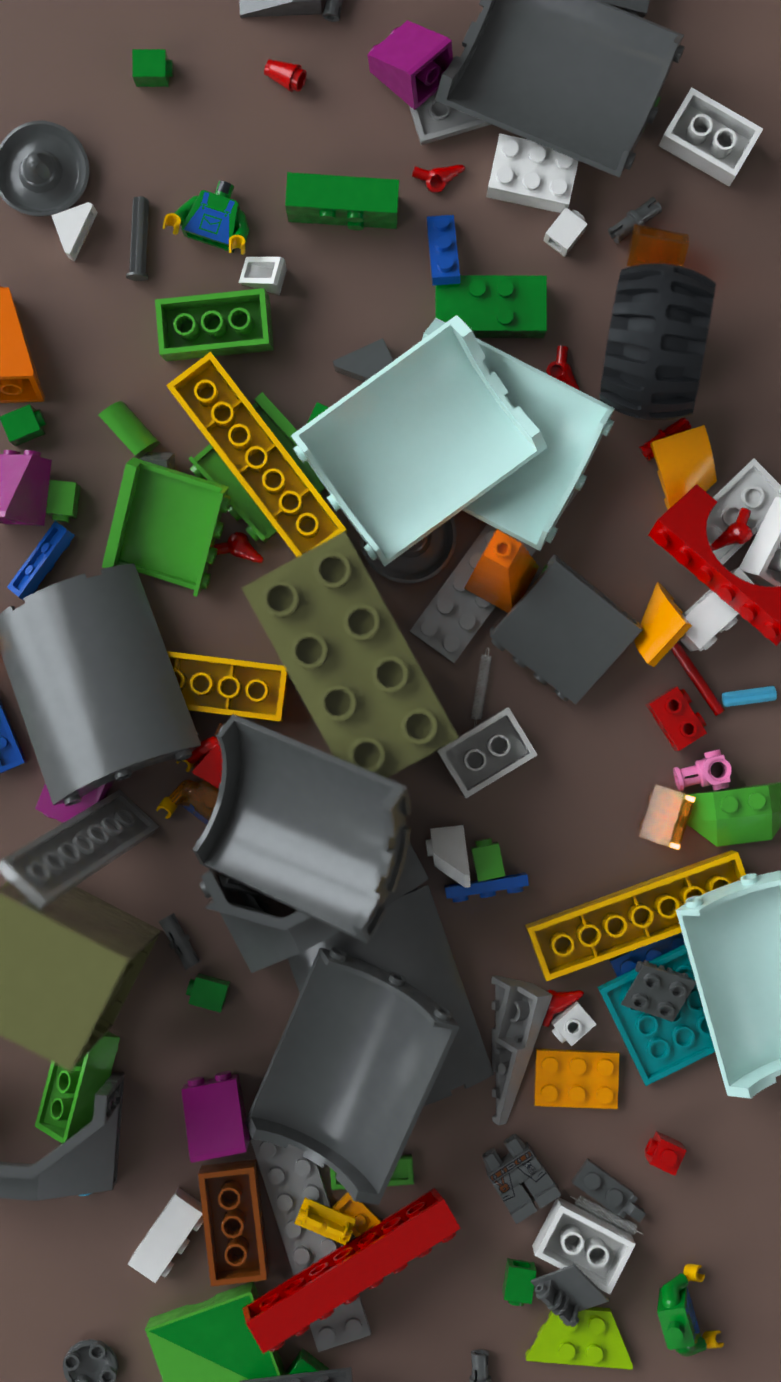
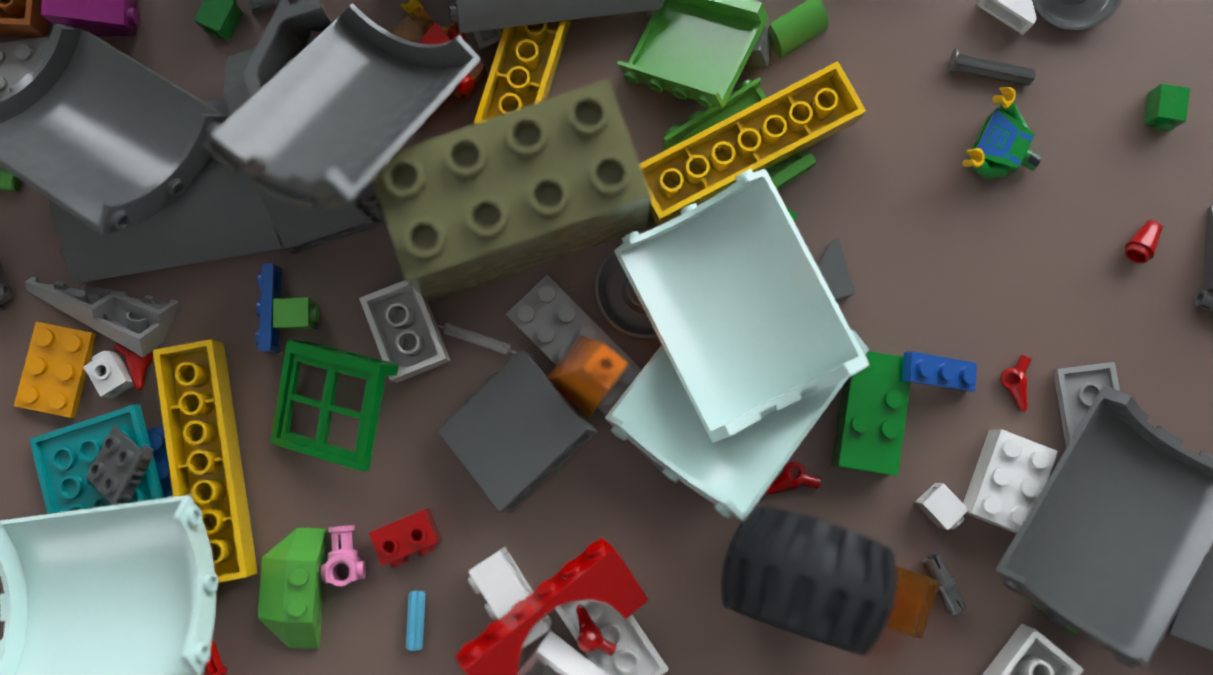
camera: 100 degrees right, 5 degrees down
(214, 323) = (893, 126): bright green brick -> none
(239, 546) = (662, 117): red animal -> none
(264, 273) = (938, 188): white slope -> none
(342, 200) = (1005, 275): green brick -> none
(411, 62) = (1146, 369): magenta slope -> none
(450, 853) = (309, 275): white slope -> none
(529, 807) = (336, 362): none -> green window
(661, 626) = (501, 534): light orange slope -> none
(666, 816) = (302, 508): clear orange brick -> none
(677, 427) = (704, 577): red axle -> none
(684, 462) = (674, 592): light orange slope -> none
(697, 679) = (457, 561): red bar -> none

